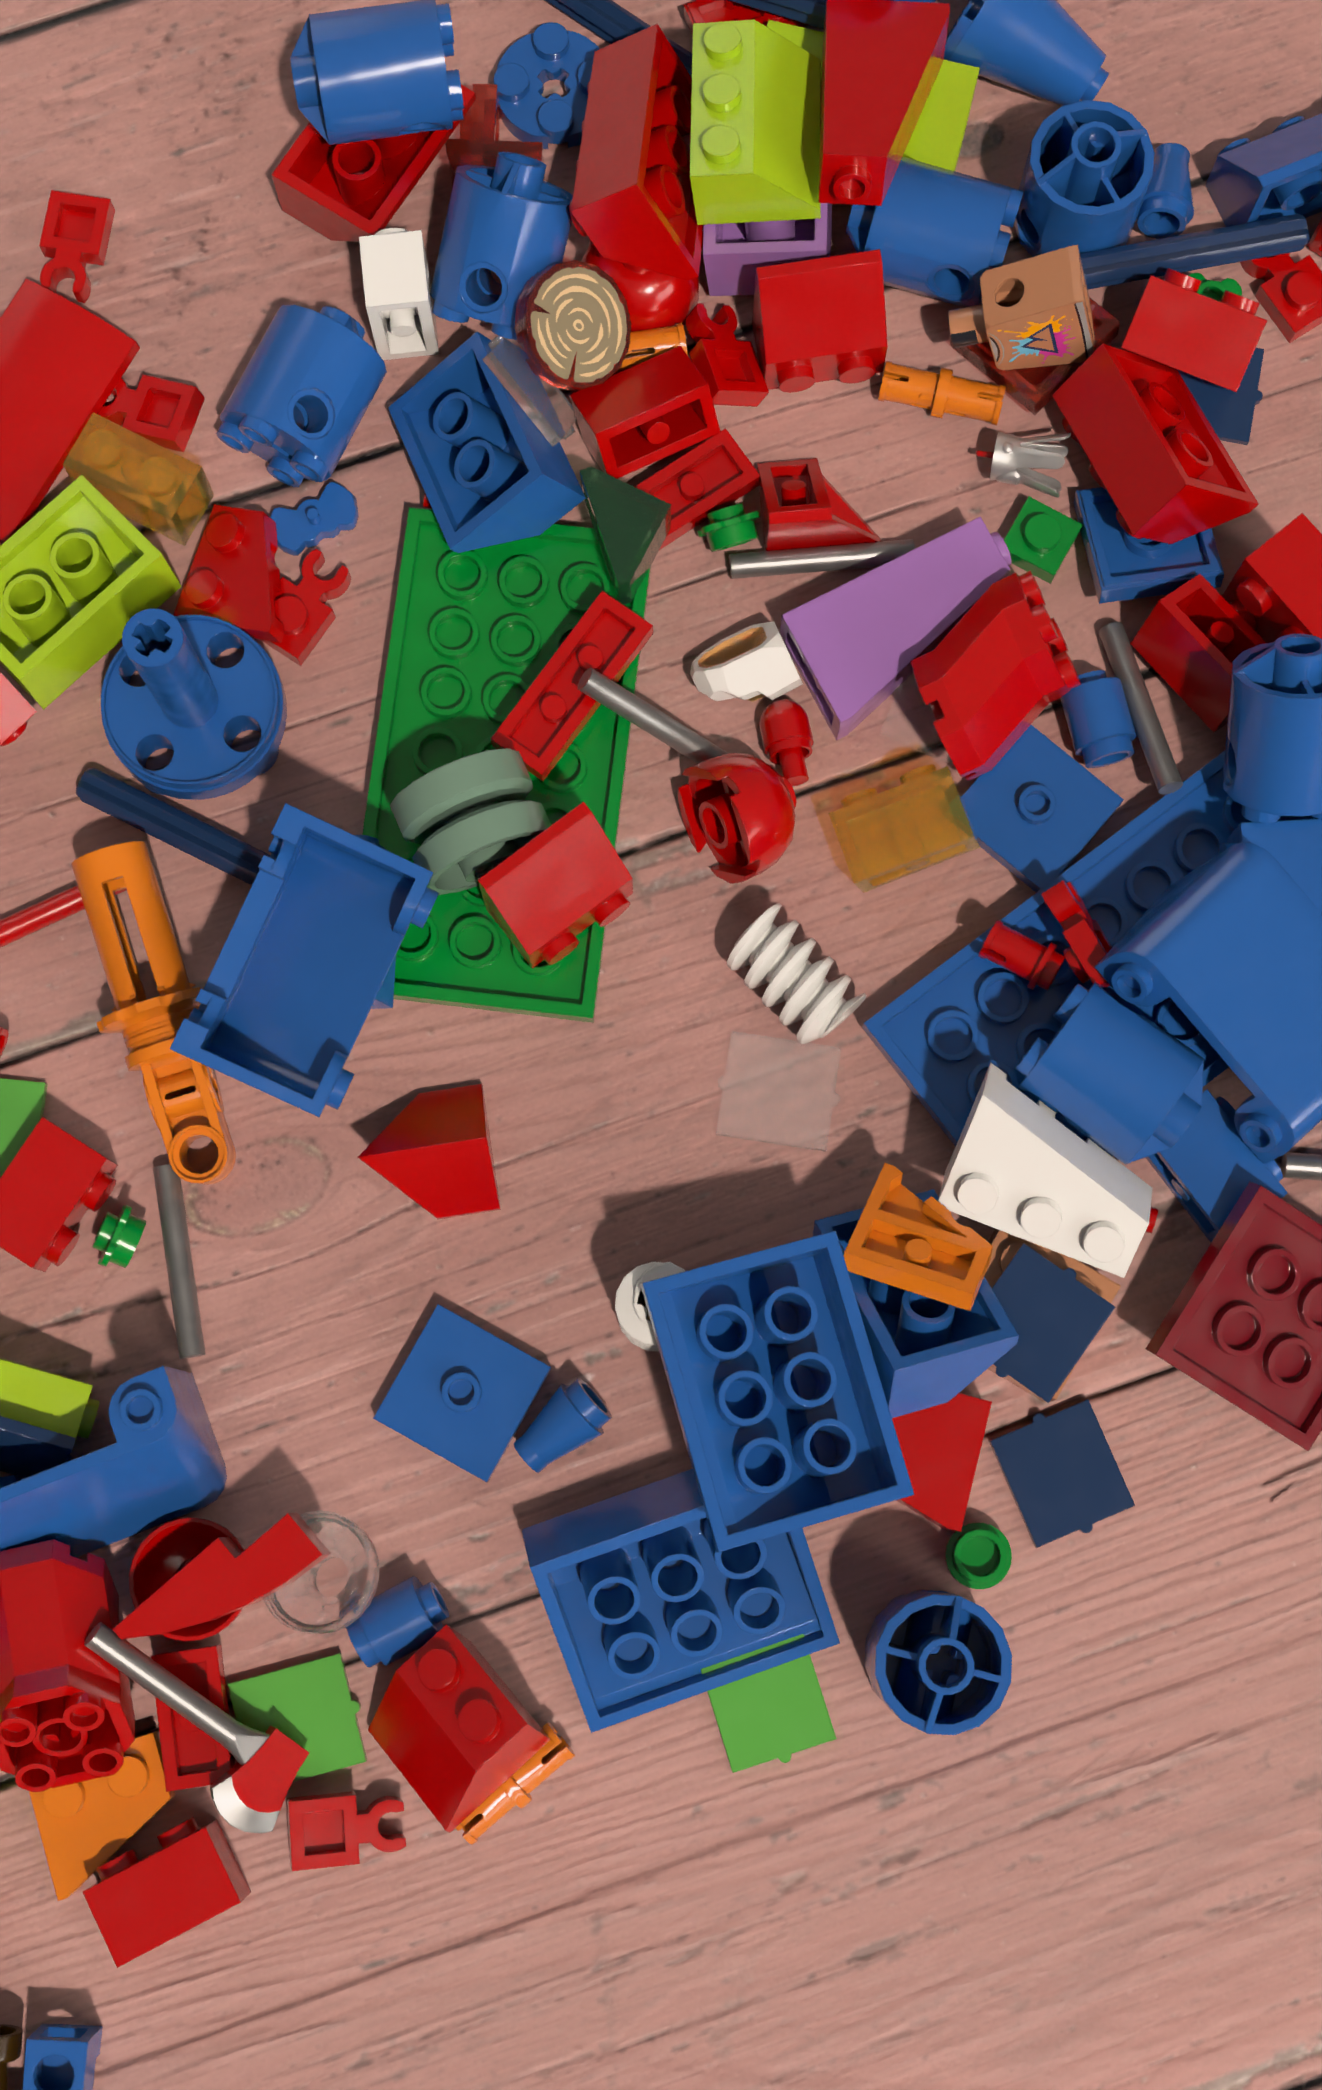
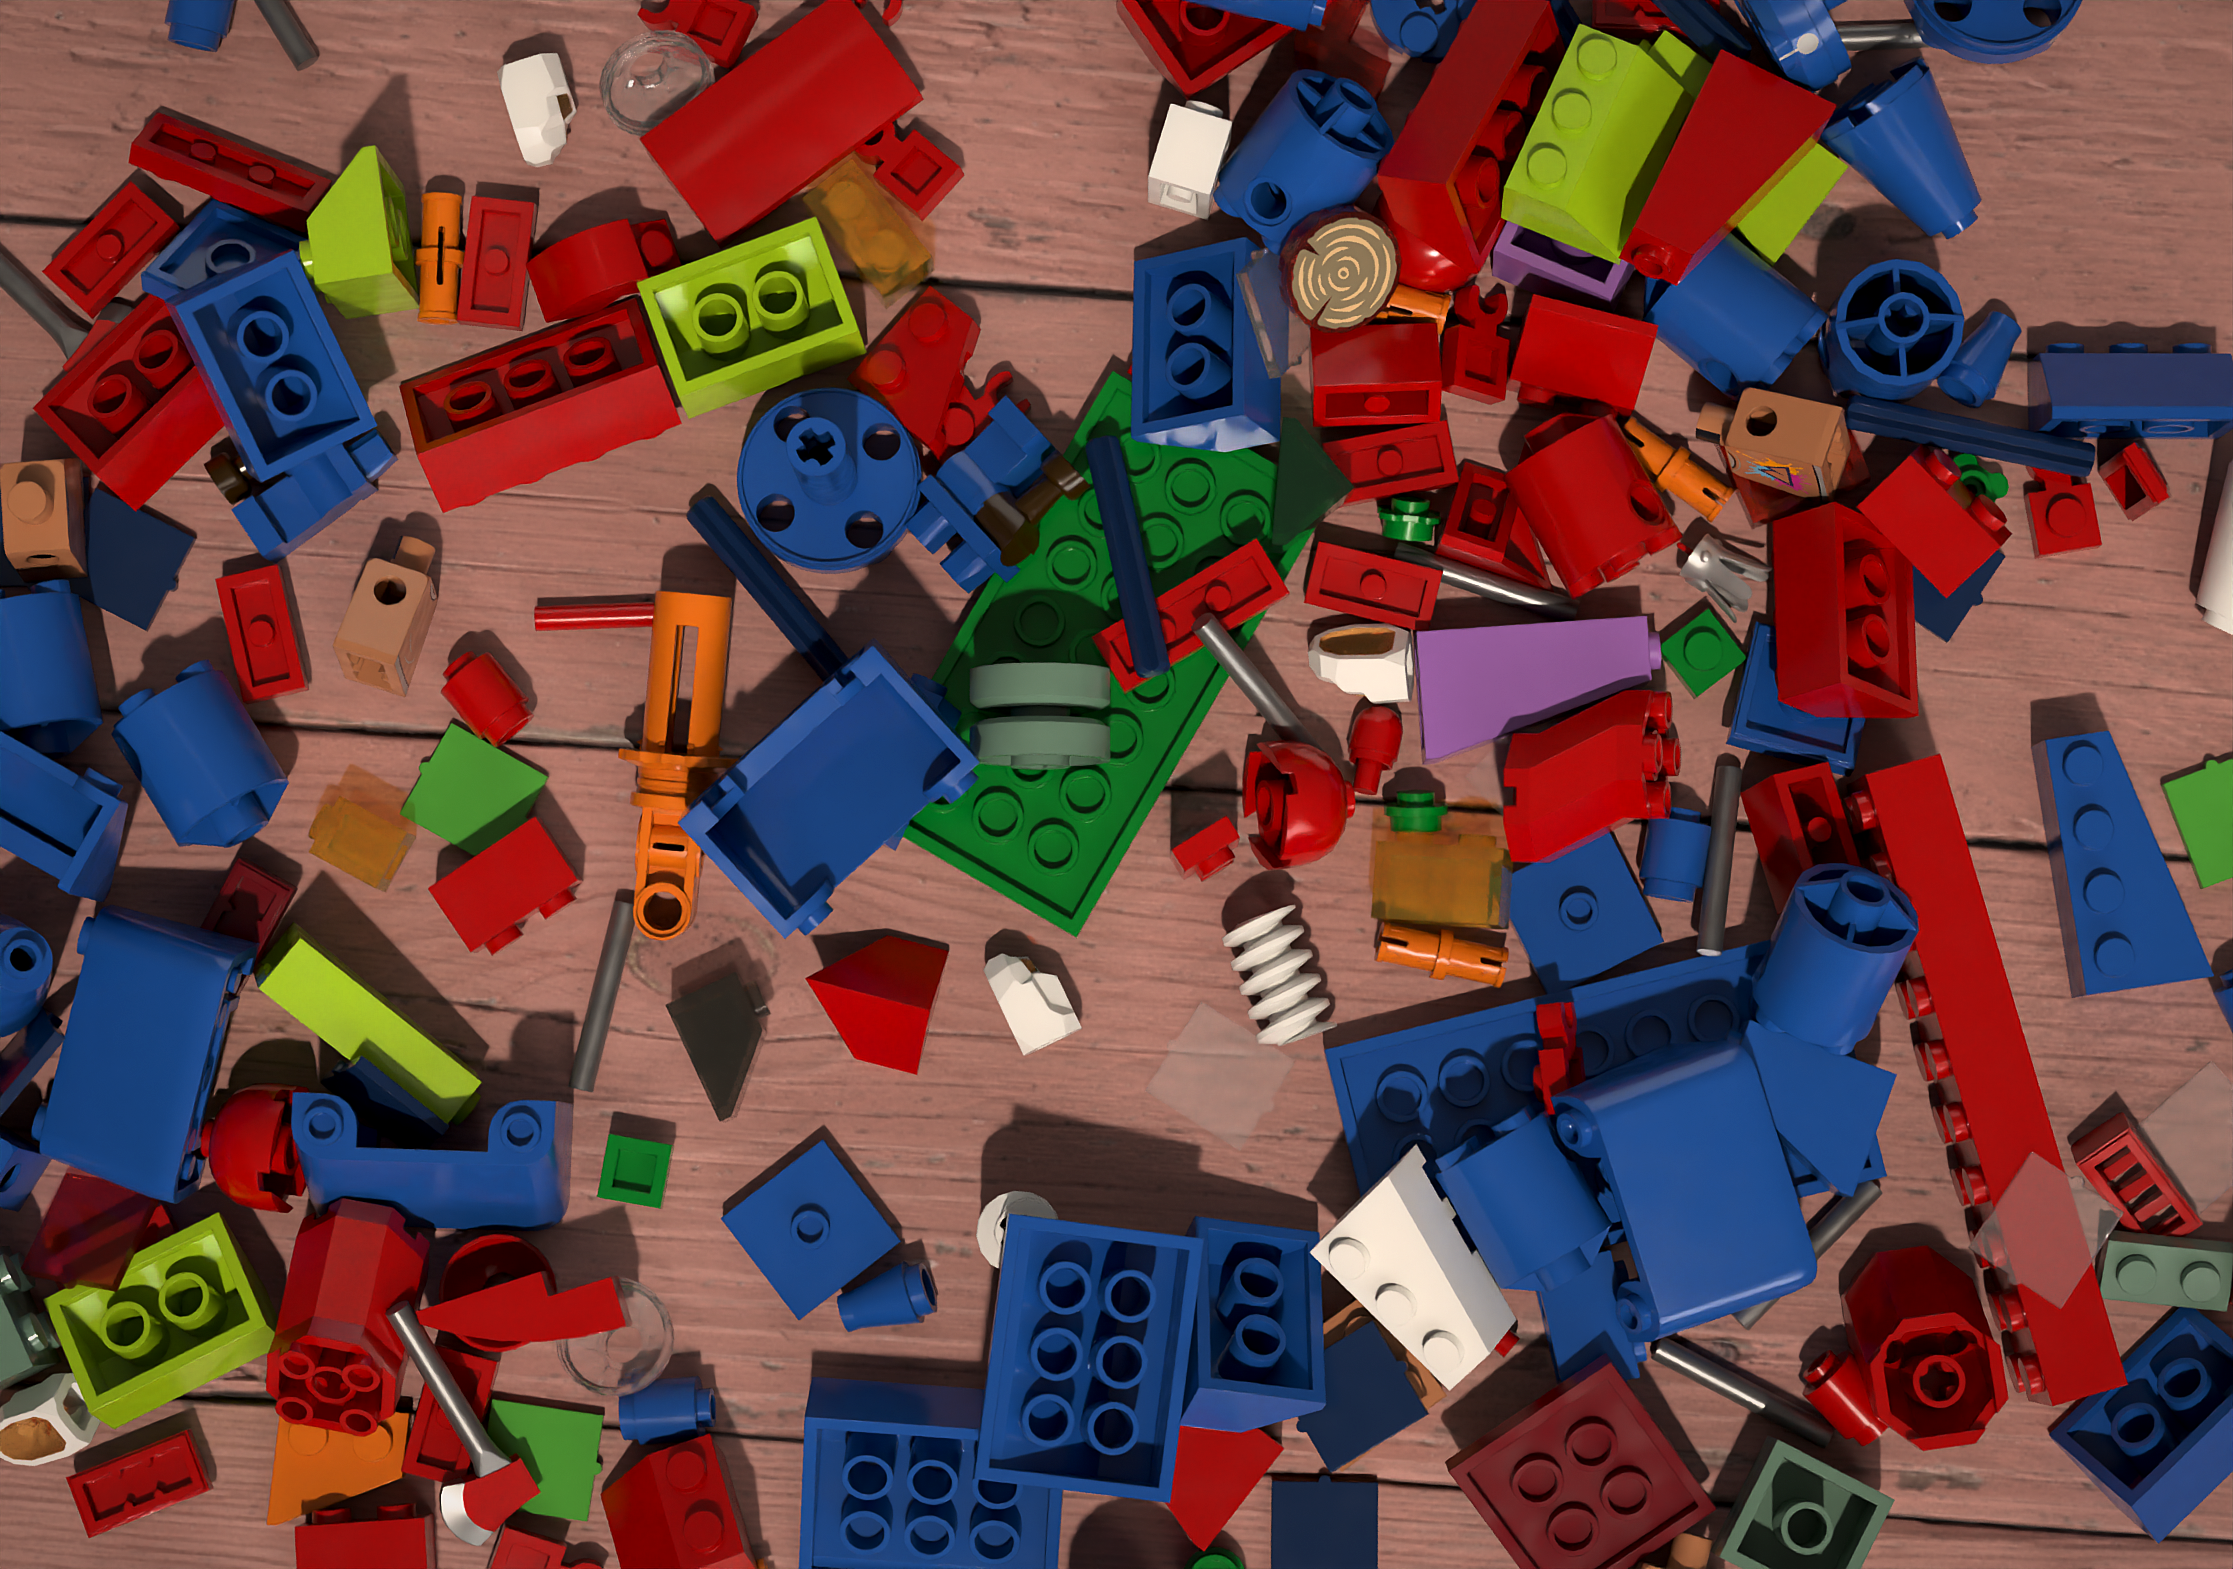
camera: 25 degrees right, 5 degrees up
(118, 1237) = (558, 953): green plate -> none
(274, 1408) = (635, 1171): none -> green plate
(303, 393) = (1058, 220): blue cylinder -> none
(305, 1248) = (723, 1037): none -> clear smoke slope
(315, 519) = (1021, 339): blue piece -> none
(349, 656) = (979, 500): none -> blue hips
(493, 654) = (1127, 557): none -> dark blue axle
(557, 887) = (1093, 811): red slope -> none
(577, 1096) = (1031, 1002): none -> white rock
(678, 886) = (1207, 850): none -> red plate
(724, 598) = (1373, 586): none -> red plate
(850, 777) = (1416, 811): none -> green plate
(883, 438) = (1589, 500): none -> red cylinder
(916, 1245) = (1273, 1280): orange wing -> none
(930, 895) = (1441, 954): none -> orange pin
(1022, 955) = (1496, 1052): red pin -> none

